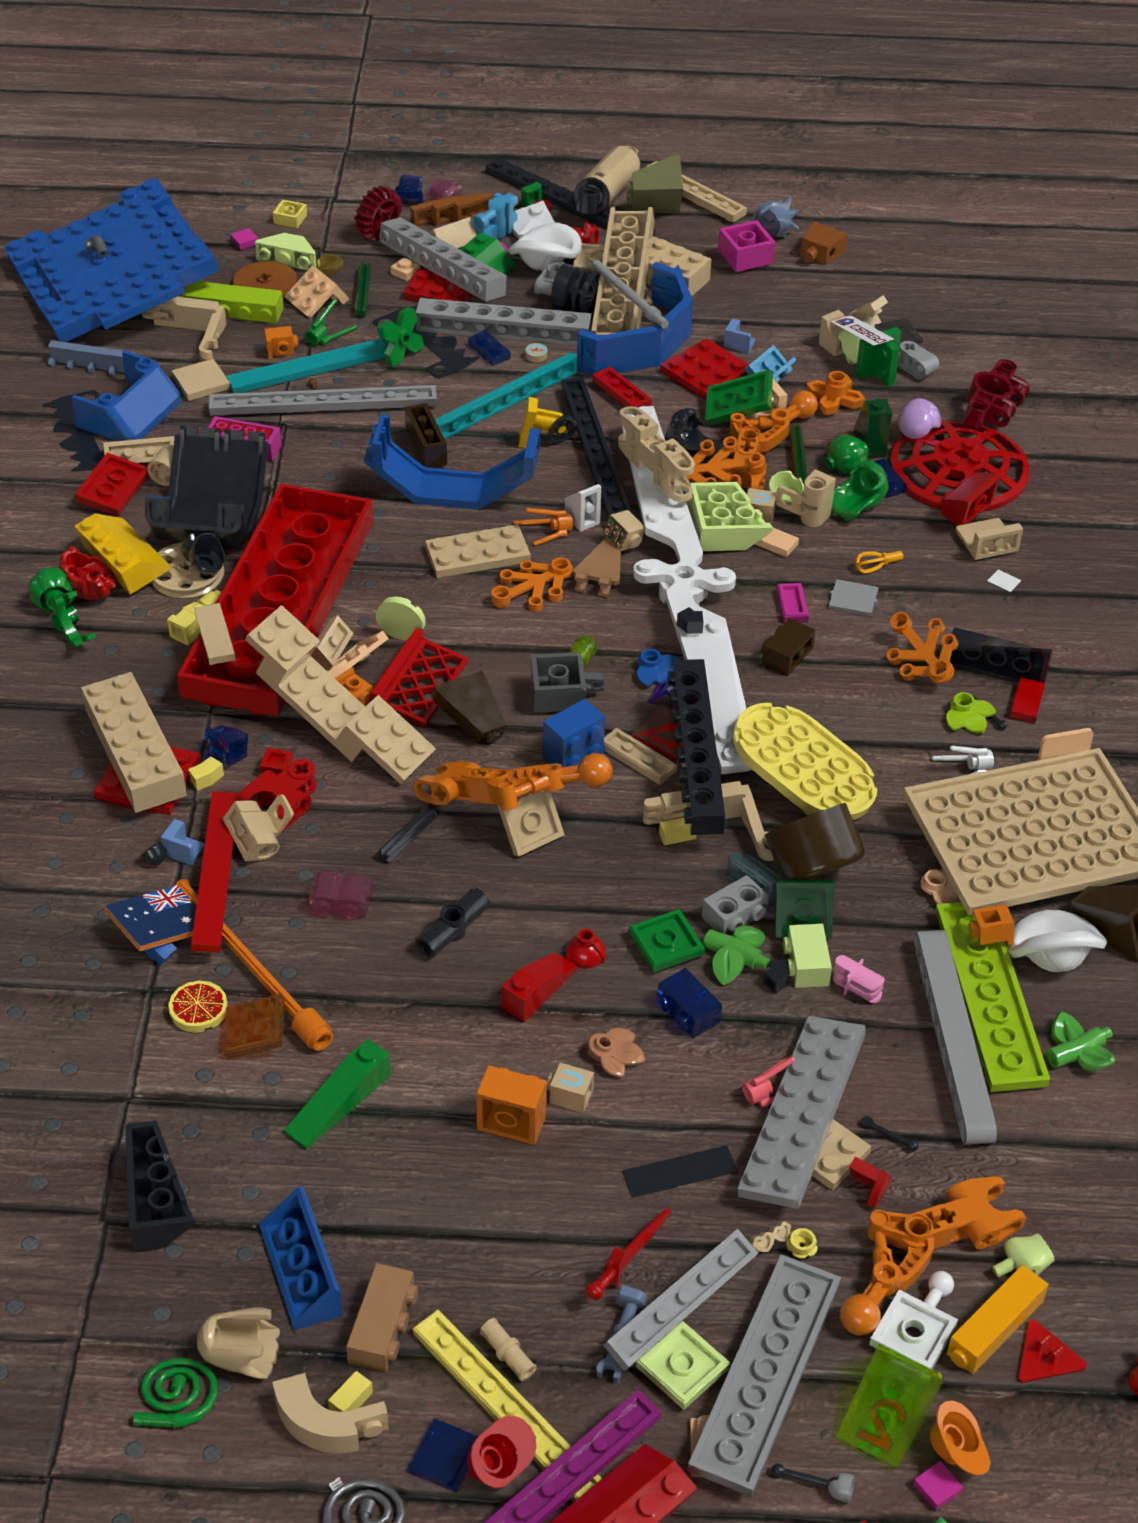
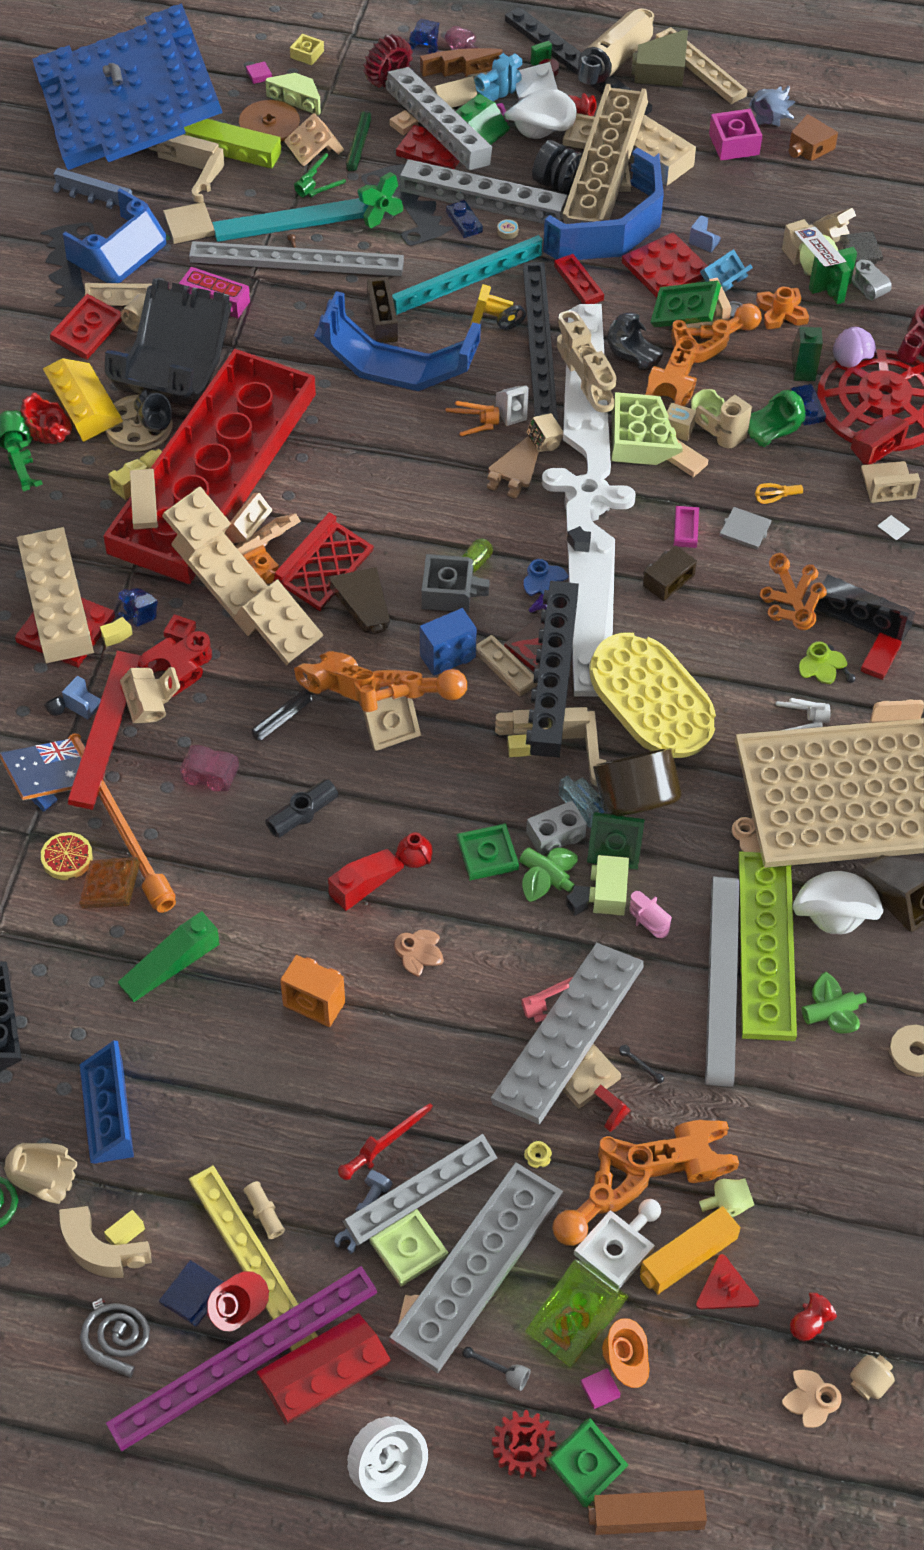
camera: 10 degrees right, 10 degrees up
(280, 341) = (269, 190): orange brick -> none
(330, 263) = (334, 109): clear yellow piece -> none
(382, 1318) = (164, 1166): medium nougat brick -> none
(399, 617) = (316, 499): yellowish green tile -> none
(477, 551) = (406, 435): tan plate -> none
(545, 280) = (531, 151): light grey piece -> none
(558, 570) = (474, 466): orange plant -> none
(570, 1087) = (370, 980): tan brick -> none
(651, 312) = (618, 204): light grey bar -> none
(679, 1171) = (449, 1070): black sticker -> none
(689, 1003) = (492, 915): clear blue brick -> none
(717, 466) = (647, 375): orange plant -> none
(765, 1240) = (507, 1145): tan piece -> none
(798, 452) = (730, 368): dark green axle -> none
(846, 453) = (775, 376): green plant -> none
(992, 925) = (781, 881): orange brick -> none

